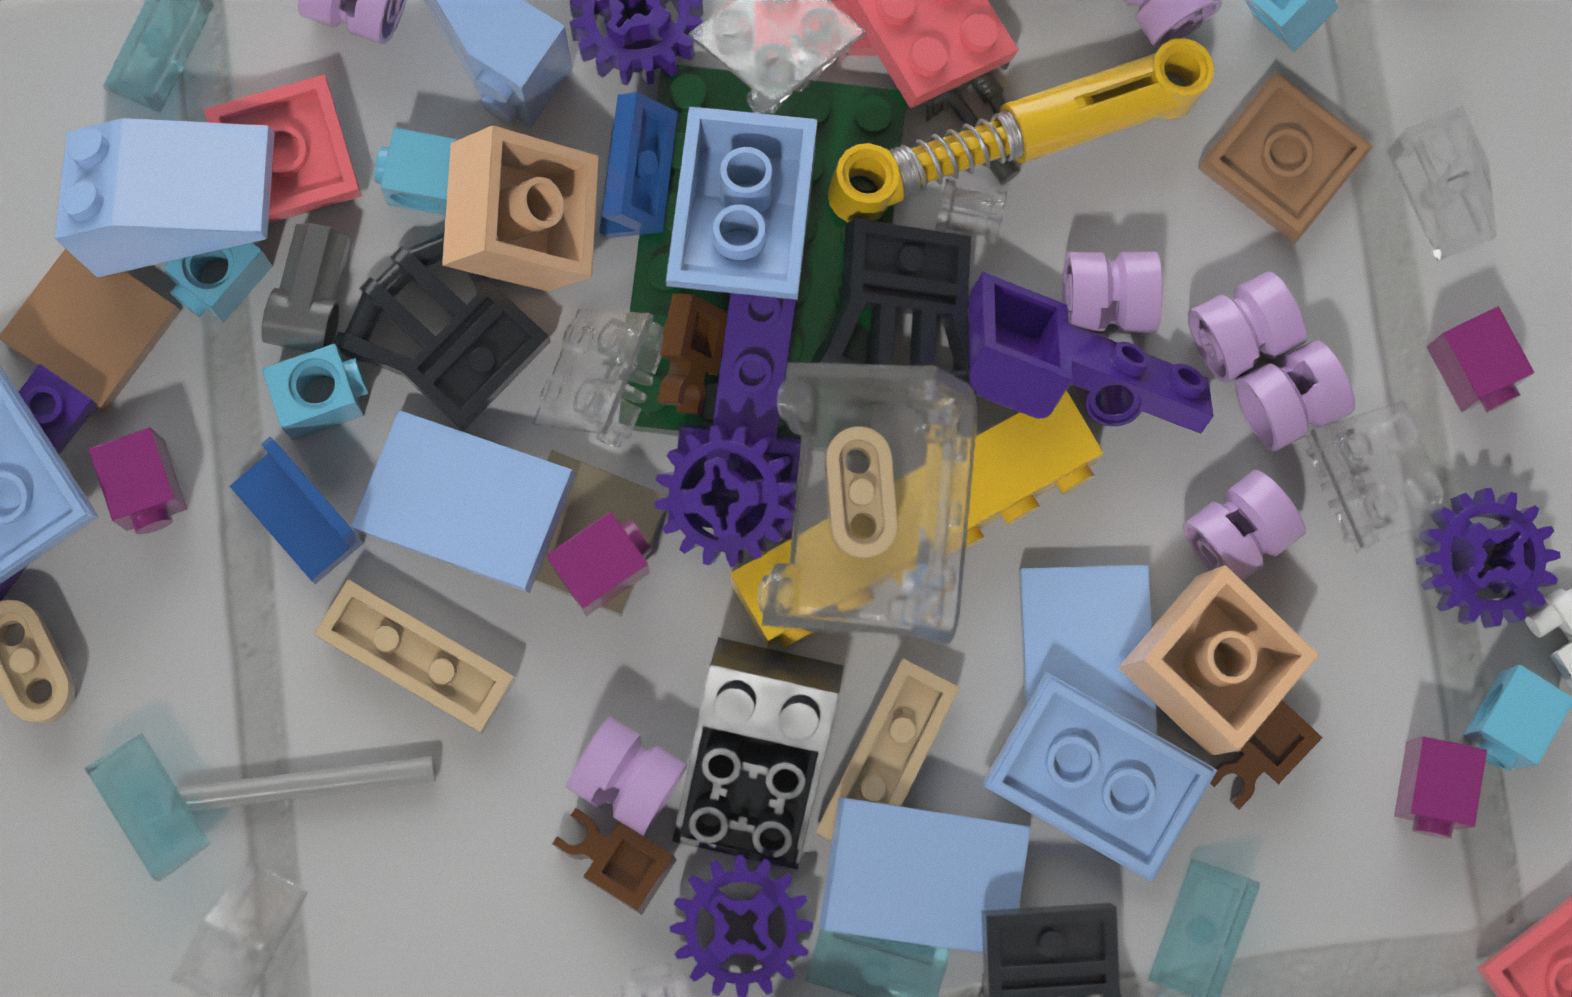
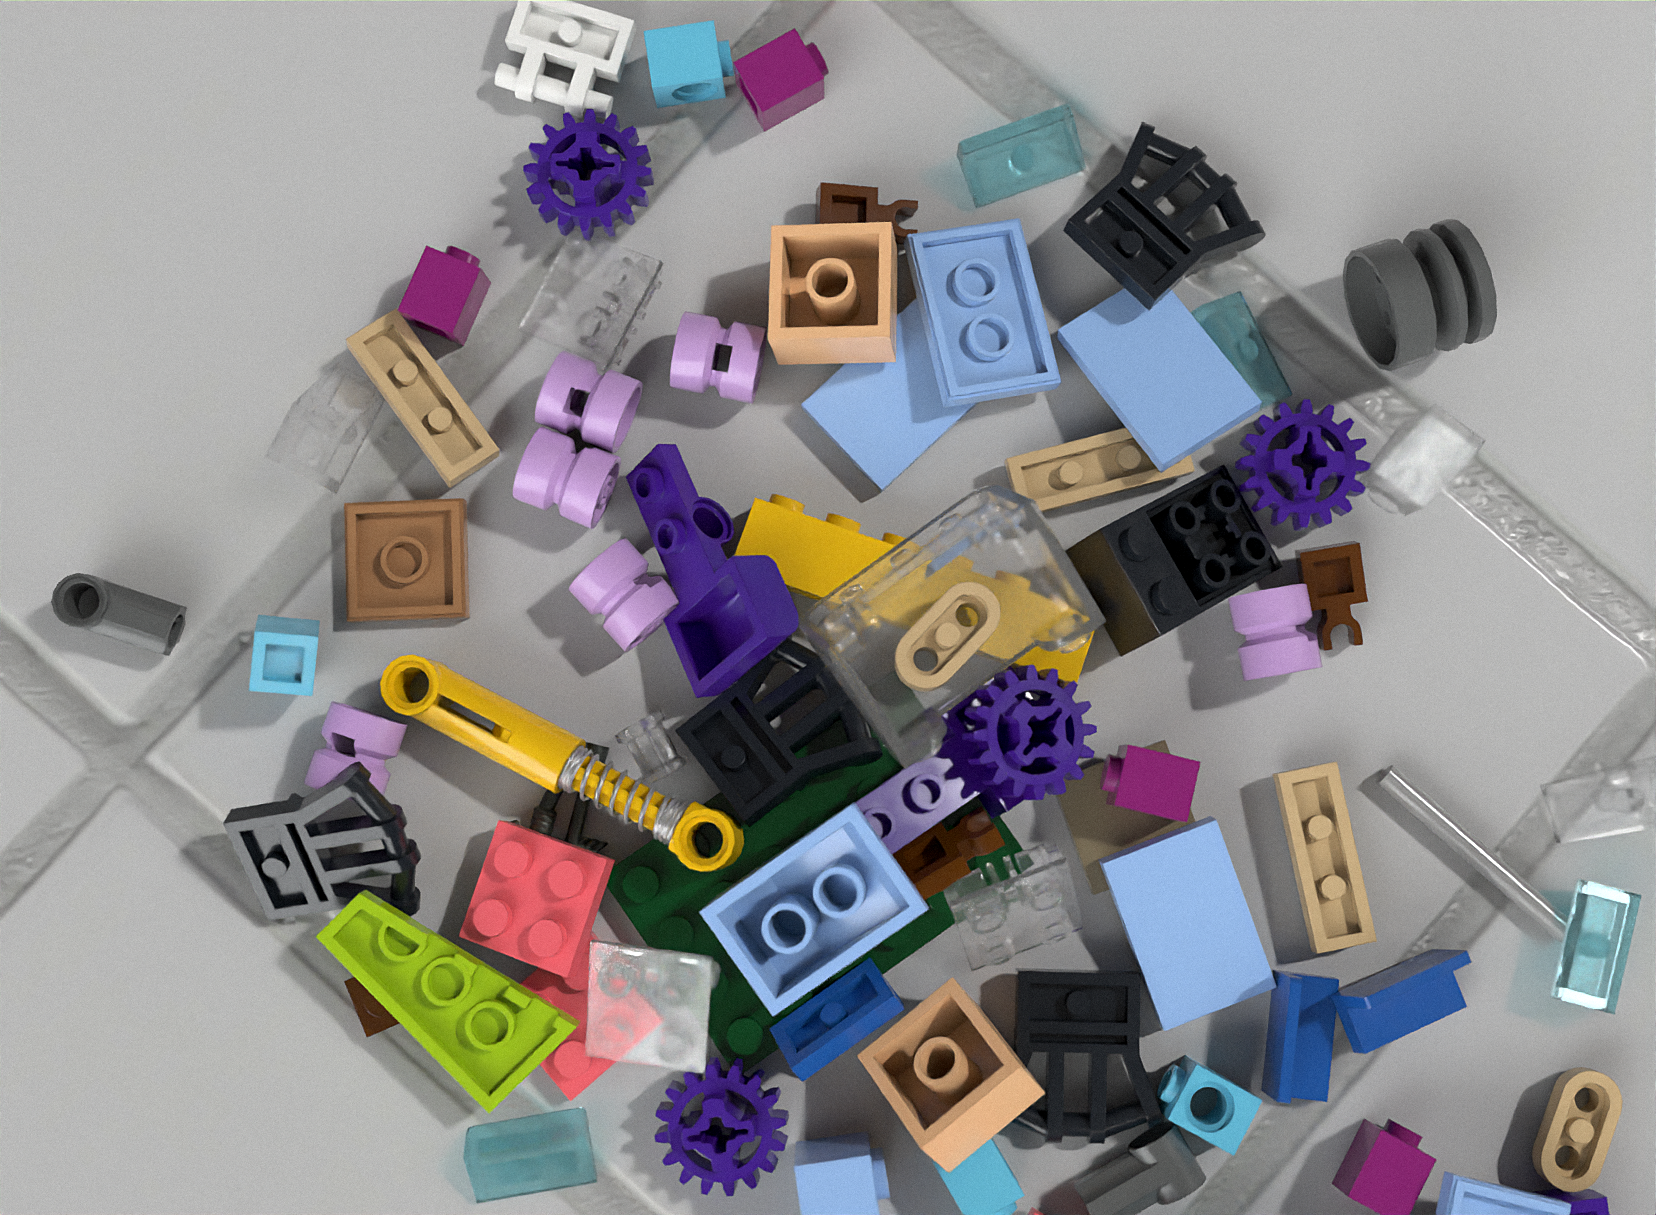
camera: 125 degrees left, 5 degrees up
(251, 614) = (1401, 999): none -> blue panel
(1408, 273) = (423, 397): none -> tan plate

